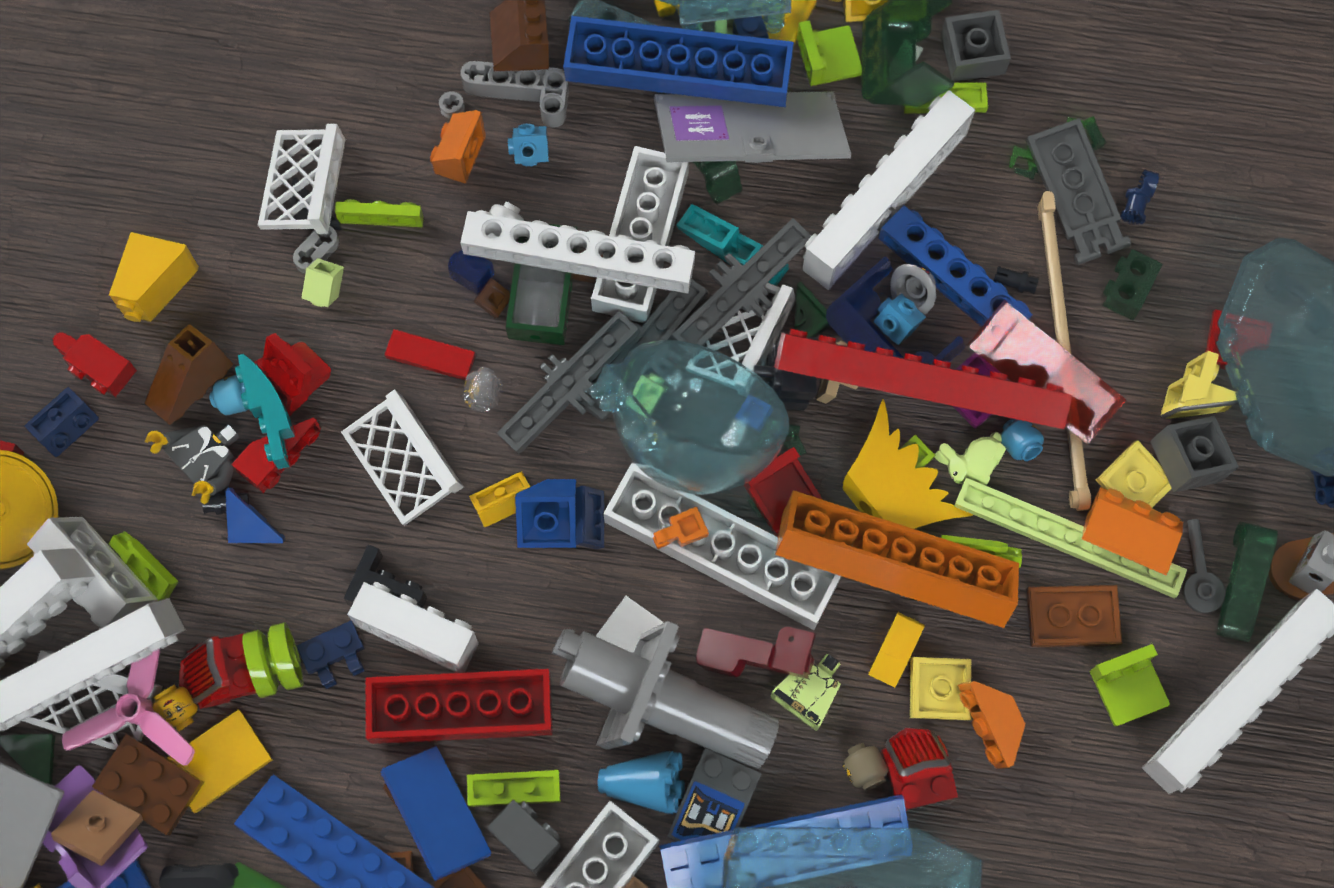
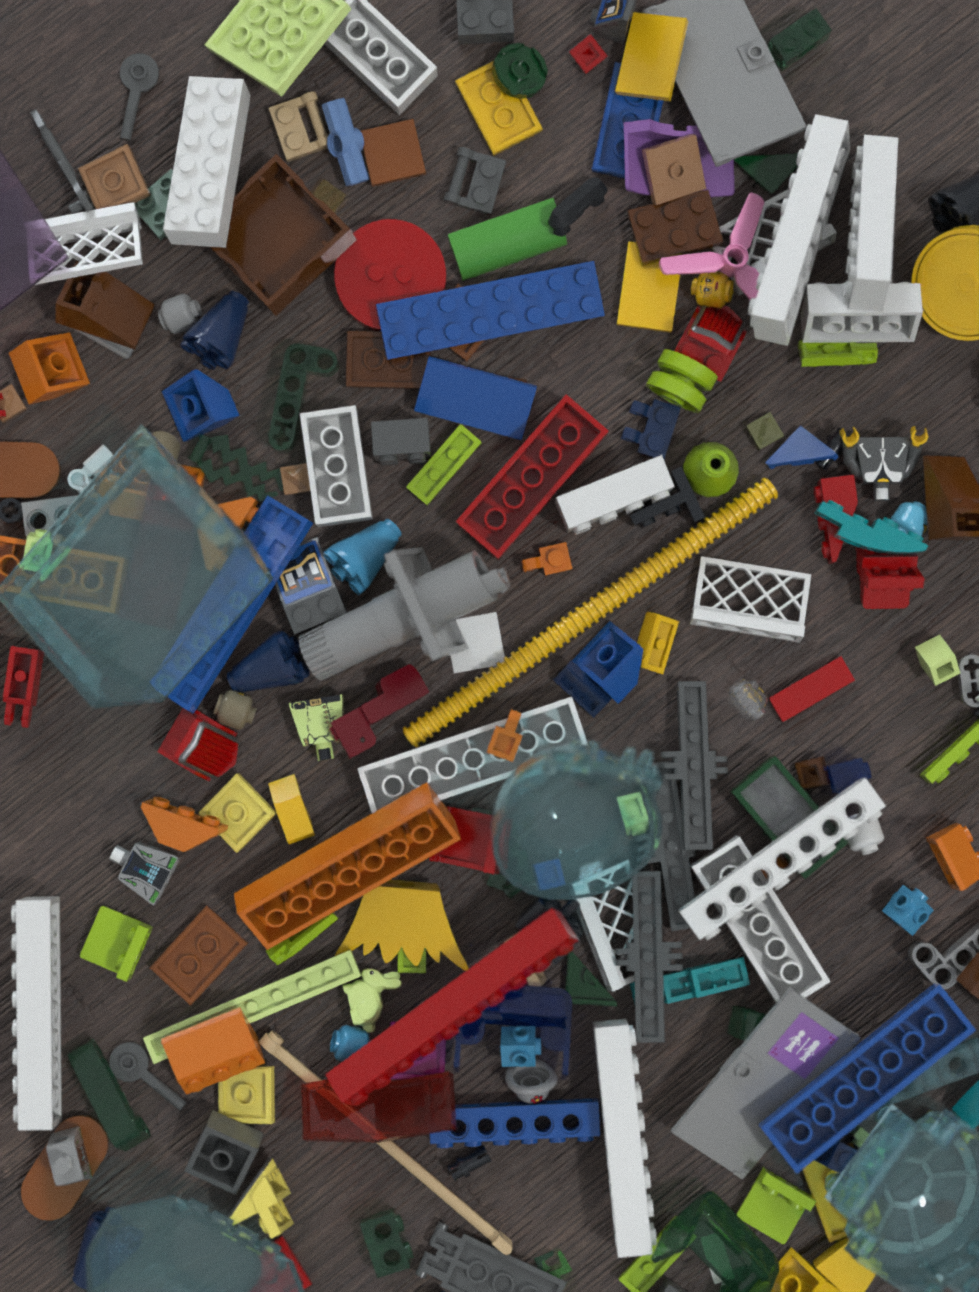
camera: 135 degrees right, 15 degrees up
(257, 566) = (764, 431): none -> olive tile
(324, 578) = (705, 479): none -> lime cone
(511, 633) = (552, 560): none -> orange plate
(524, 565) = (591, 611): none -> yellow piece
(805, 771) = (270, 665): none -> dark blue cone
(1054, 717) = (145, 869): none -> torso

